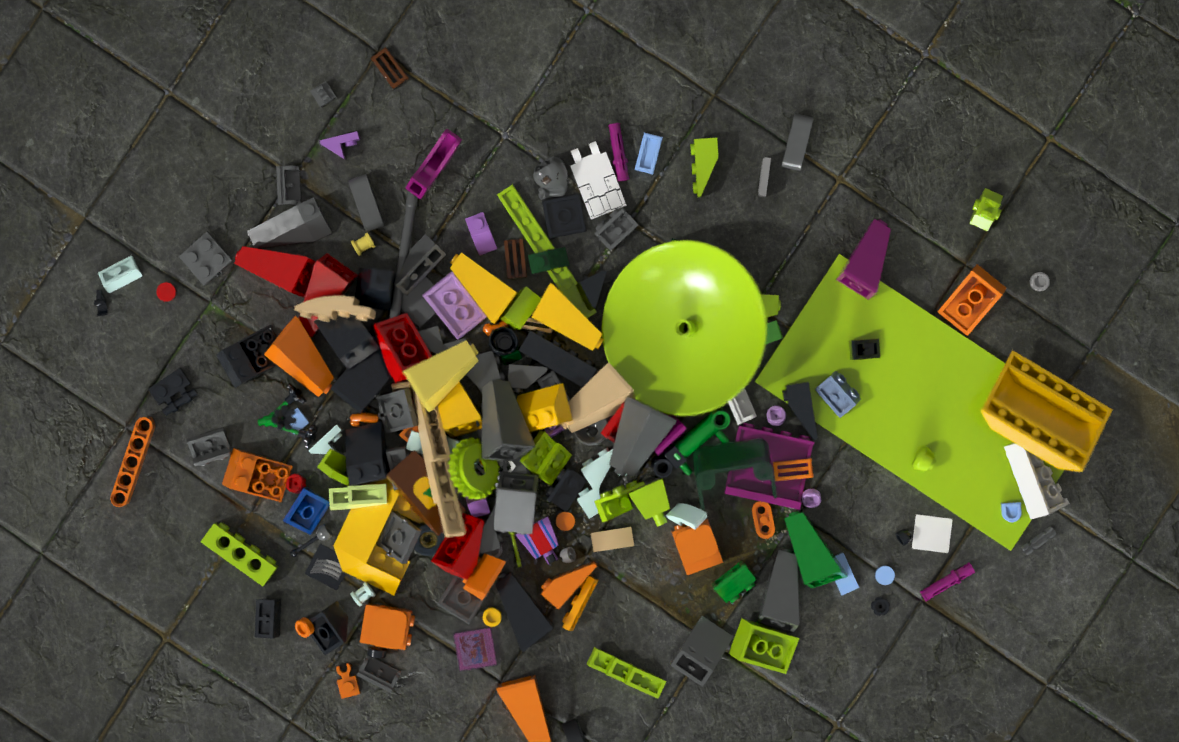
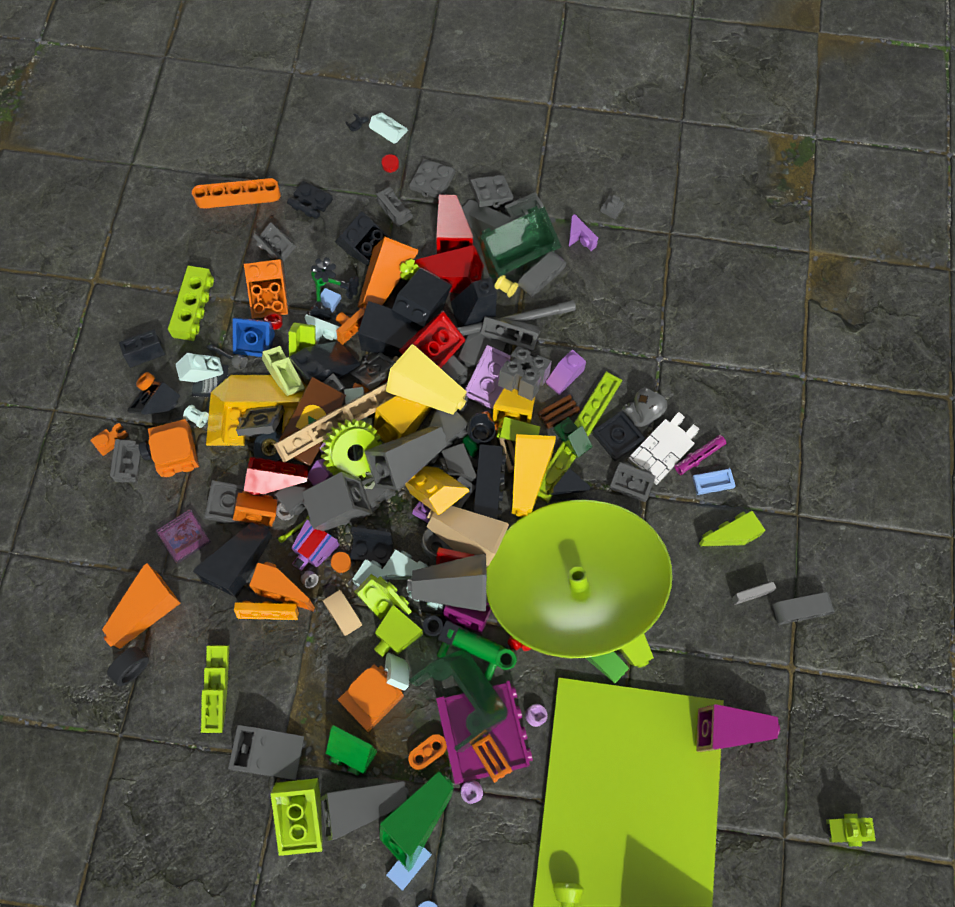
camera: 65 degrees right, 20 degrees down
(221, 311) = (393, 207): none -> dark grey hinge
(250, 207) = (491, 190): none -> dark grey plate
(311, 333) = (408, 269): none -> lime plant
(314, 572) = (198, 367): none -> light aqua slope
(331, 215) = (518, 242): none -> clear green windscreen
(331, 306) = (440, 272): tan slope -> none
(336, 413) = (349, 325): none -> orange tile
(356, 418) = (357, 349): orange arm -> none
(380, 55) = (656, 257): reddish brown tile -> none
(434, 164) = (607, 308): magenta arch -> none
(484, 280) = (524, 373): none -> dark grey brick
(492, 616) = (220, 537): yellow tile -> none
(546, 458) = (392, 513): lime slope -> none
(742, 407) = (531, 672): white hinge -> none
(800, 402) = (562, 730): black slope -> none
(838, 394) = (589, 766): sand blue bracket -> none
(864, 349) = (647, 771): black slope -> none
(972, 300) = (754, 862): orange slope -> none

